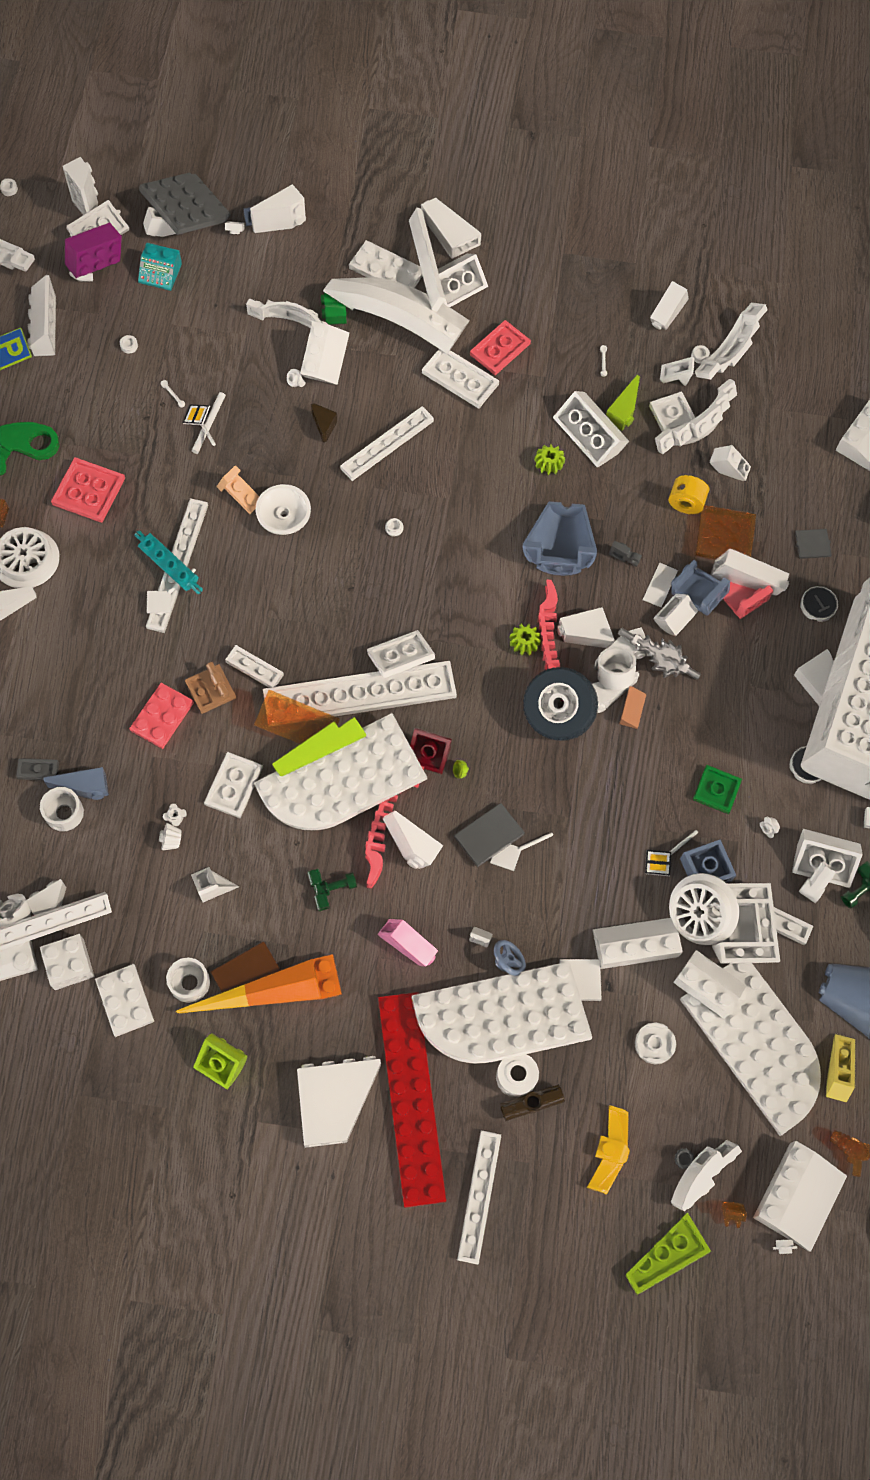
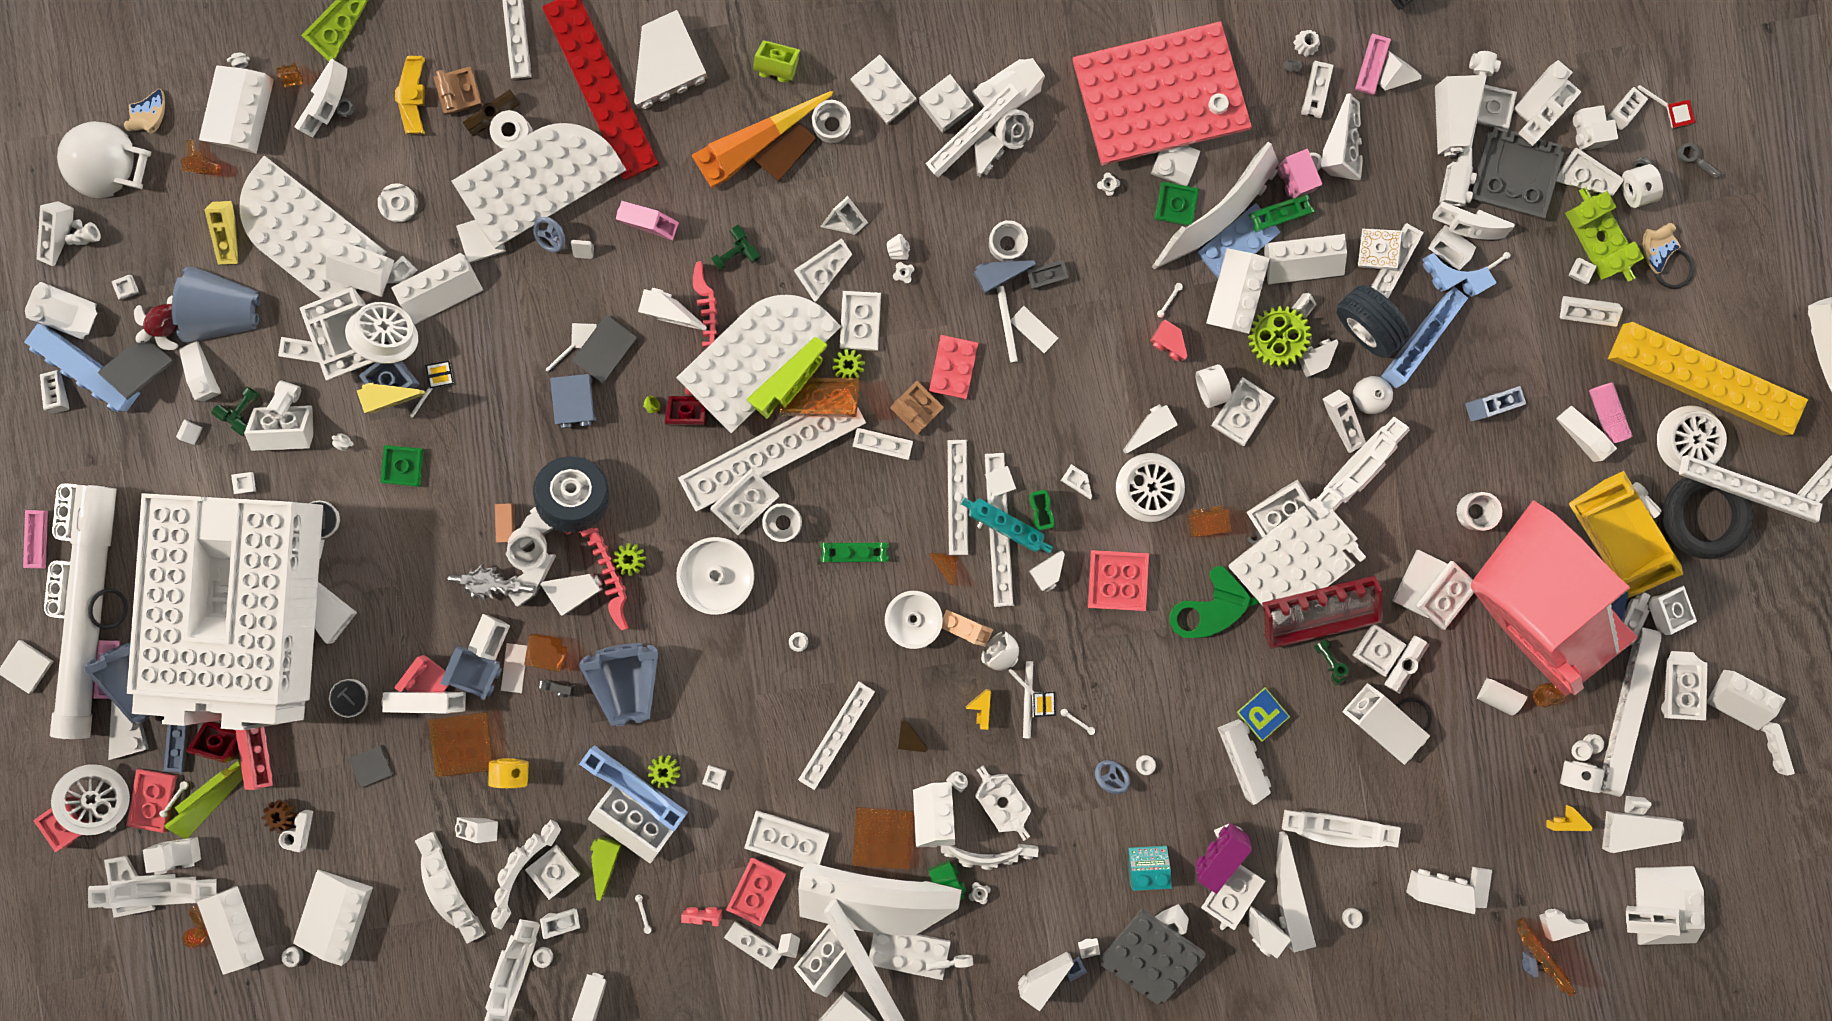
camera: 165 degrees right, 20 degrees up
(51, 213) = (1291, 899): none -> white slope
(72, 727) = (1034, 329): none -> white sticker
(88, 583) = (1078, 481): none -> white tile
(96, 735) = (1007, 324): none -> white bar
(131, 564) = (1042, 515): none -> green brick
(146, 515) = (1048, 571): none -> white slope
(162, 339) = (1111, 779): none -> sand blue piece
(203, 603) = (956, 492): none -> white tile
(216, 461) = (1002, 652): none -> white cylinder
(236, 548) = (946, 564): none -> clear orange slope
(250, 427) = (982, 703): none -> yellow slope
(252, 843) = (822, 268): none -> white wing
(259, 339) = (1005, 818): none -> white plate
(259, 752) = (849, 358): none -> lime gear
(310, 292) = (984, 893): none -> white plate
(315, 585) = (854, 552): none -> green plate
(348, 247) = (959, 961): none -> white piece
(369, 616) = (773, 531): none -> white piece
(376, 356) = (882, 838): none -> clear orange plate
(449, 599) = (715, 575): none -> white dish
(486, 300) = (788, 945): none -> white slope
(507, 444) = (714, 777): none -> white tile
(516, 311) = (753, 944): none -> white plate
(534, 795) = (572, 400): none -> sand blue panel
(552, 340) = (696, 916): none -> coral wing
(560, 1138) = (457, 90): none -> medium nougat plate
(602, 477) = (650, 798): none -> light blue arch
(626, 584) = (545, 653): none -> clear orange piece
(668, 973) = (401, 271): none -> white tile
(715, 843) = (380, 397): none -> light yellow slope
(773, 427) = (443, 890): none -> white piece

